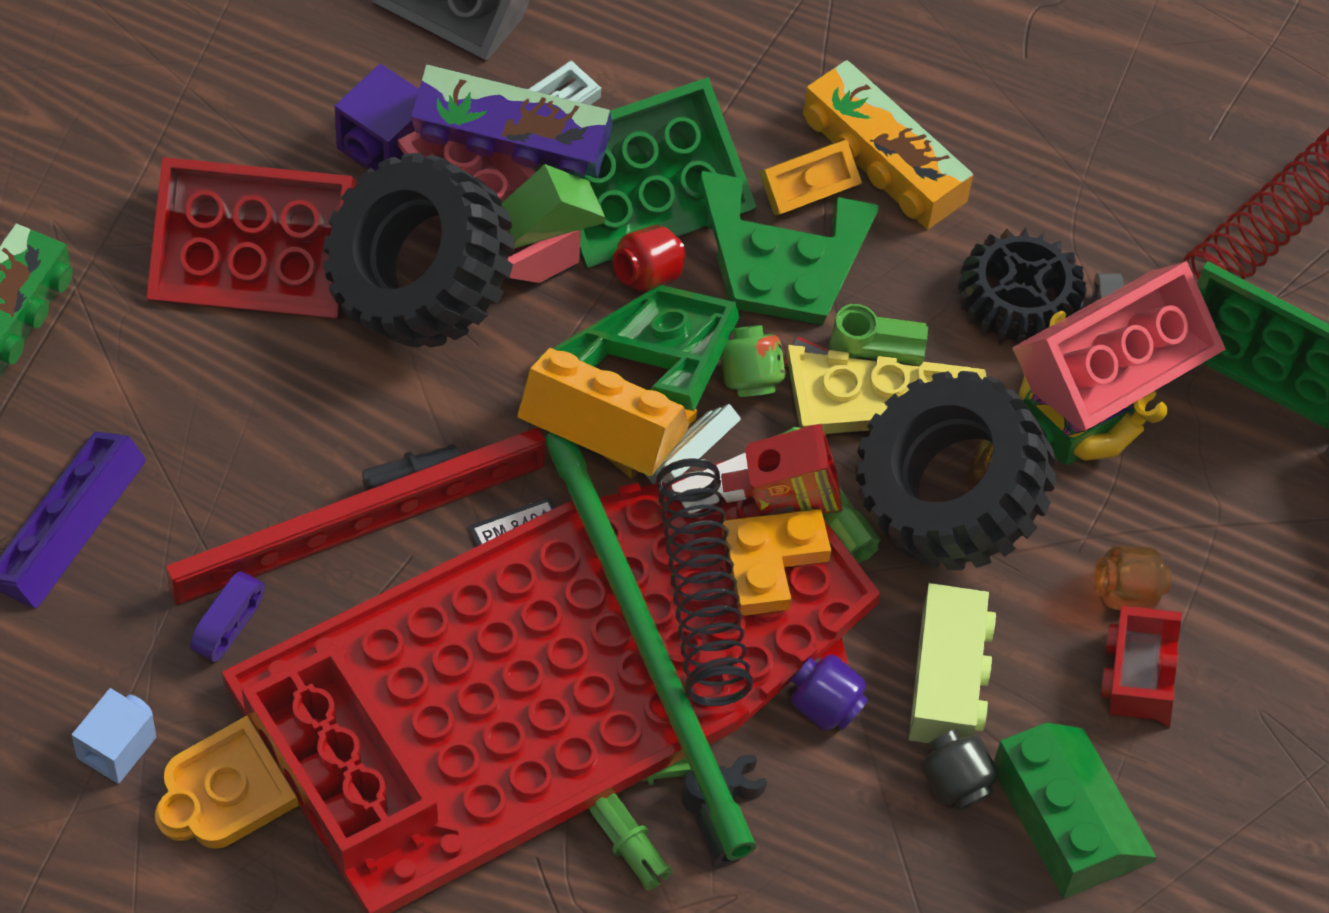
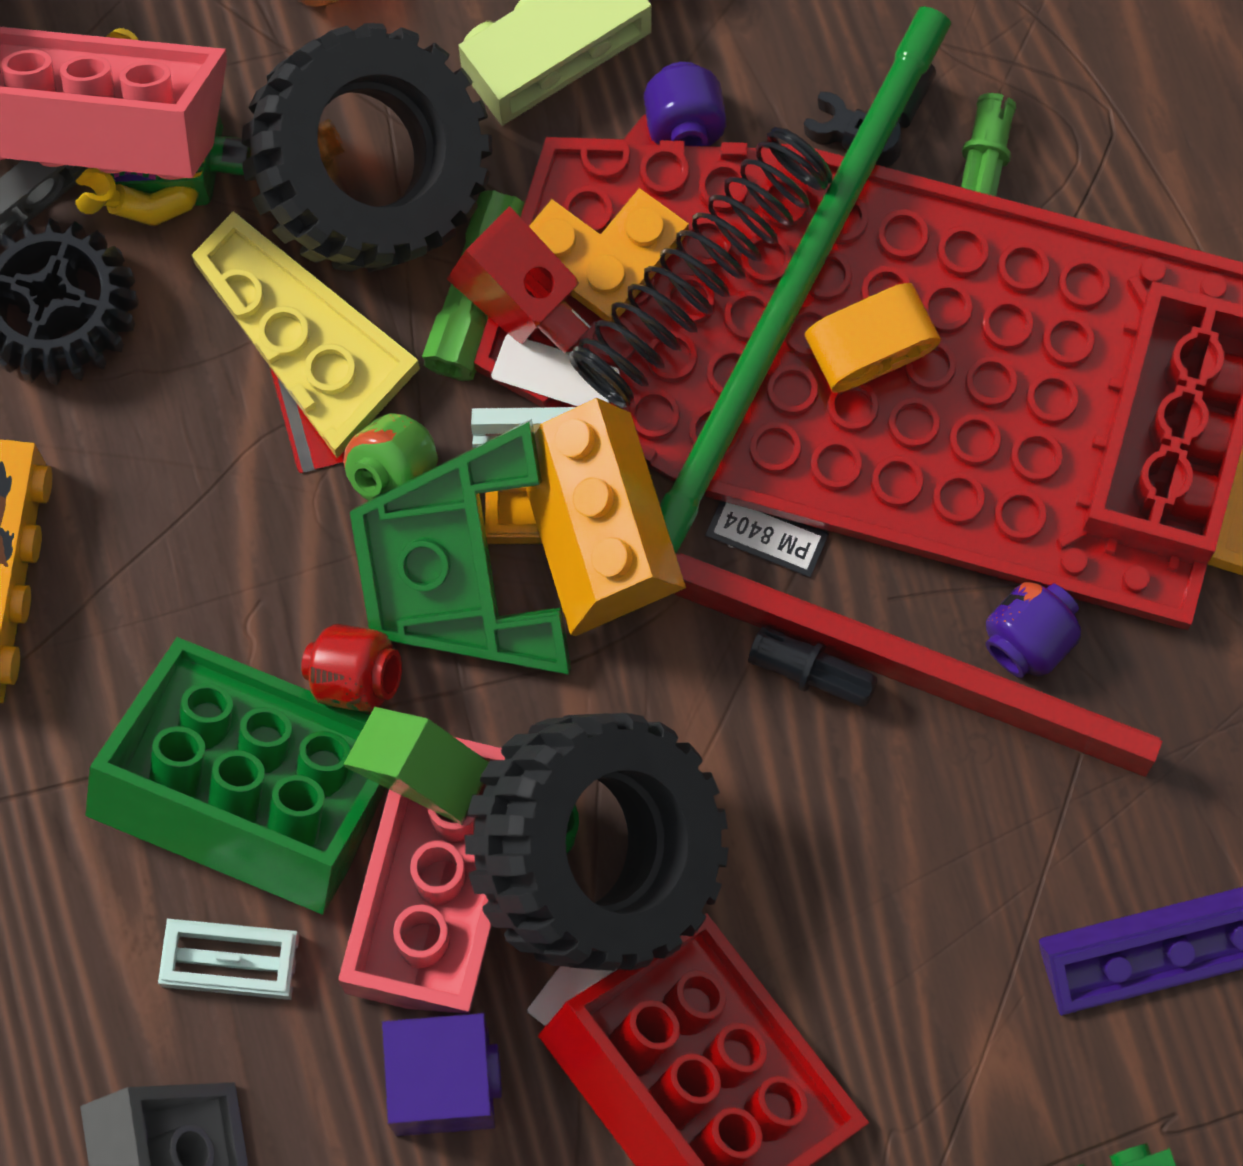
camera: 125 degrees left, 15 degrees up
(227, 616) = (1130, 679): dark purple beam -> none
(309, 592) = (1033, 629): none -> dark purple head
(511, 122) = (356, 886): brick -> none
(565, 636) = (872, 337): none -> light orange beam
(781, 268) = (239, 539): green wing -> none
(810, 177) = (96, 606): light orange plate -> none
(877, 336) = (242, 379): bright green piece -> none

